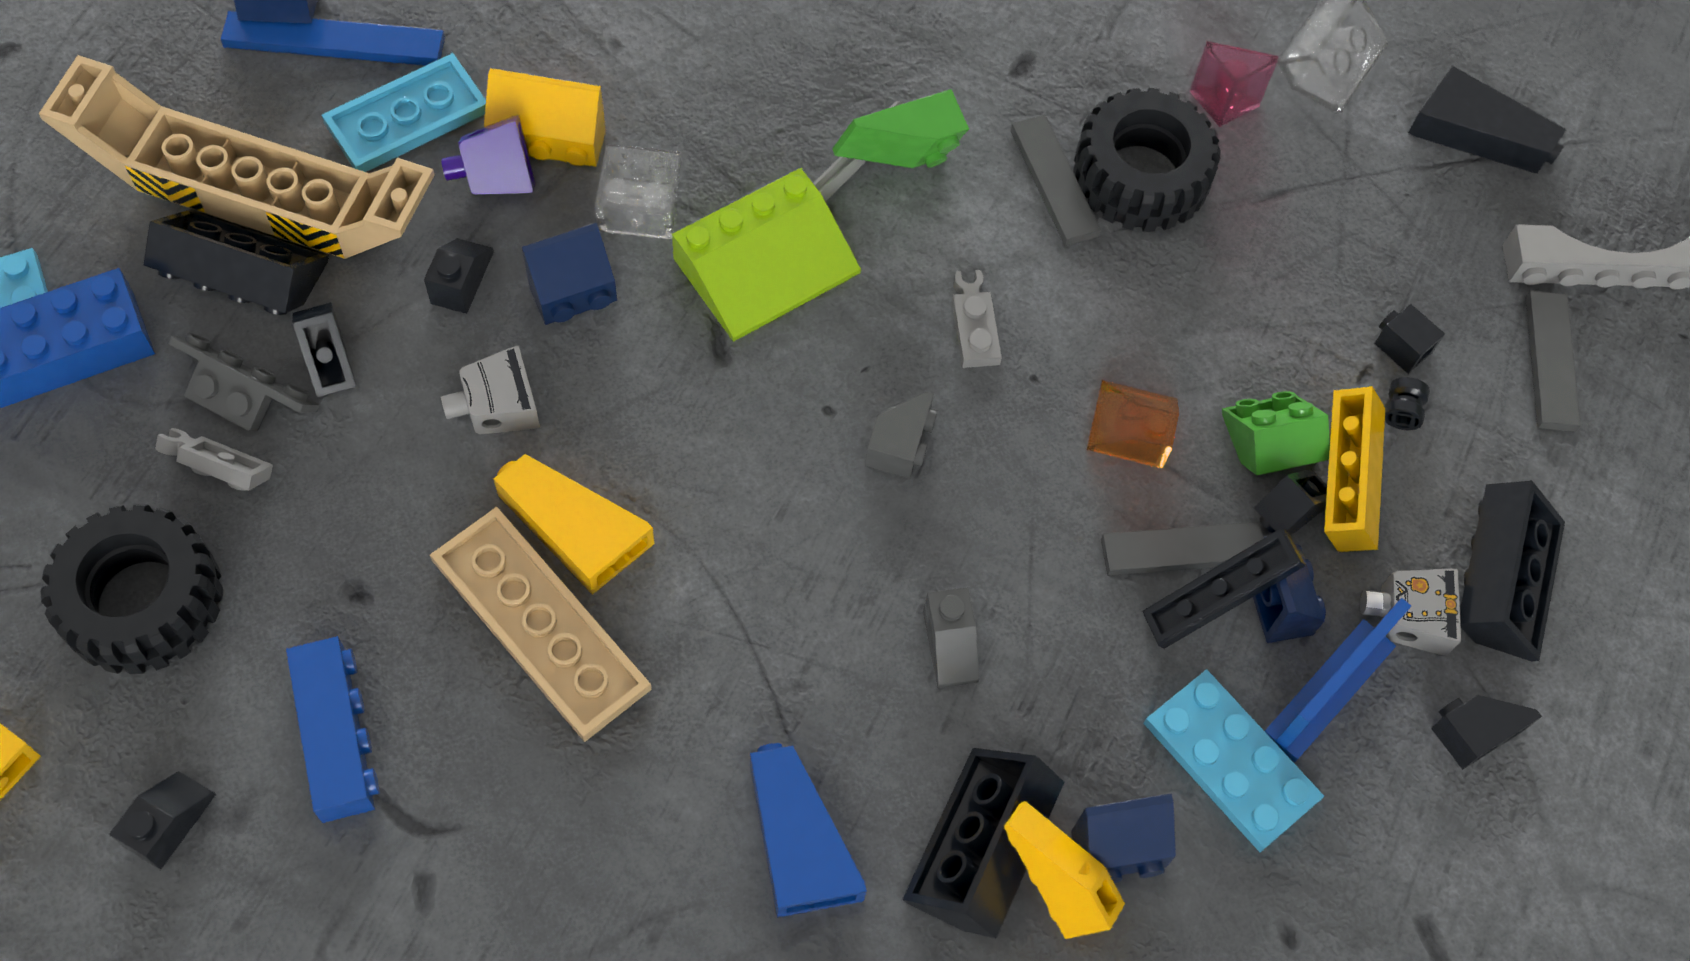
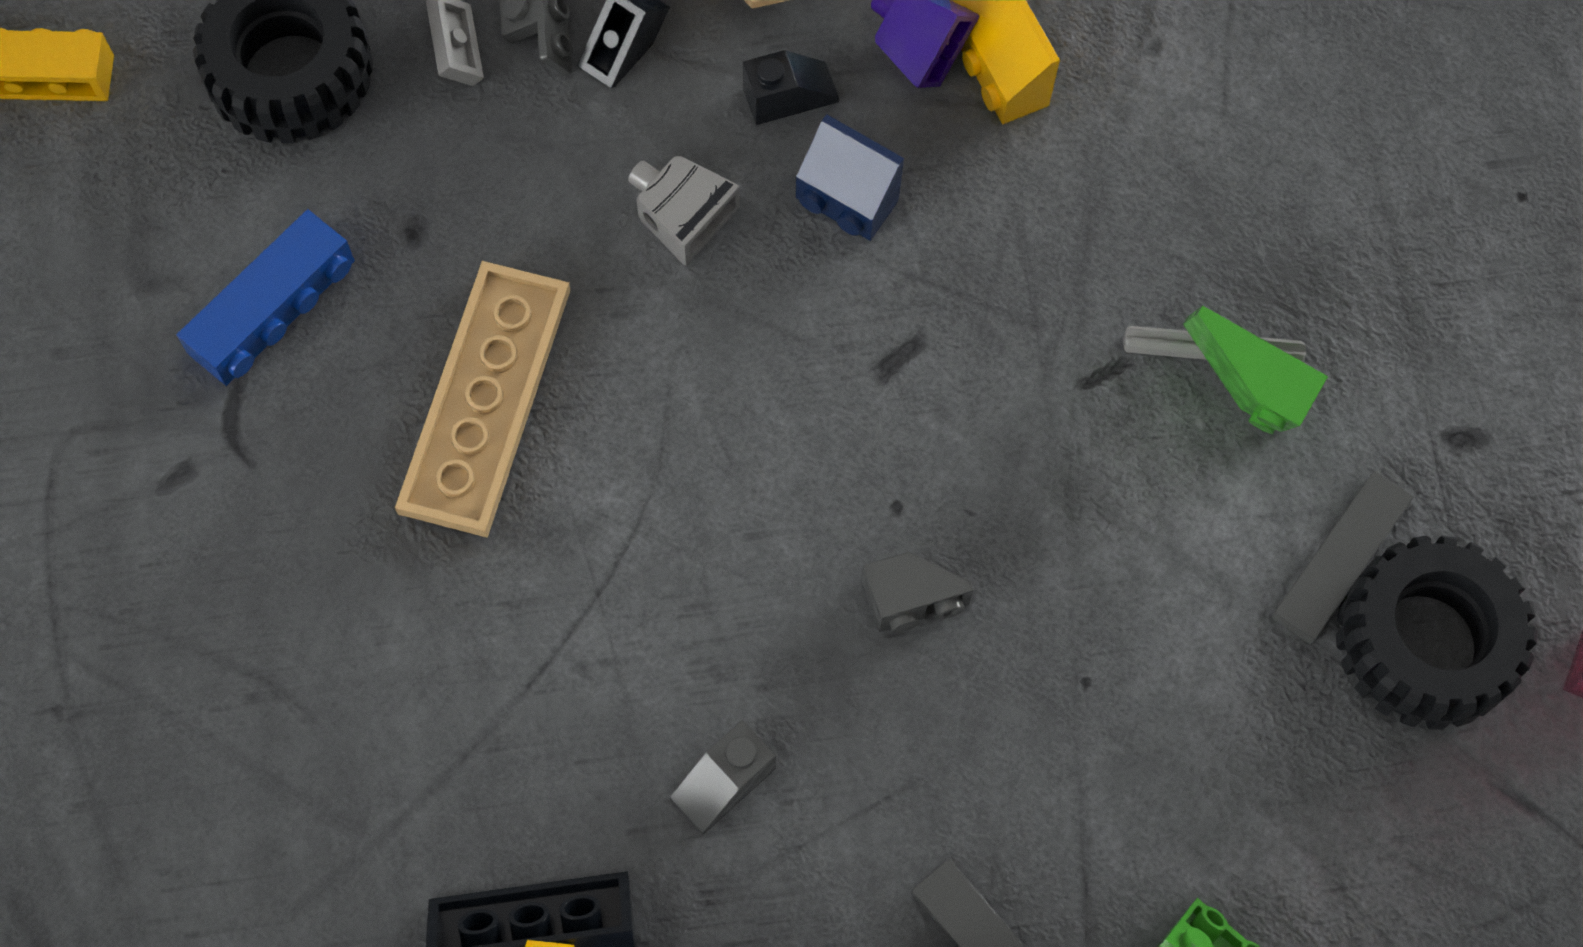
camera: 60 degrees right, 5 degrees up
(162, 818) = (104, 226): black slope -> none
(573, 522) = (598, 364): yellow slope -> none
(638, 191) = (993, 176): clear slope -> none
(765, 254) = (1018, 336): lime slope -> none
(801, 844) = (422, 761): blue slope -> none
(975, 323) = (1102, 584): light grey plate -> none
(1133, 424) = (1107, 814): clear orange slope -> none

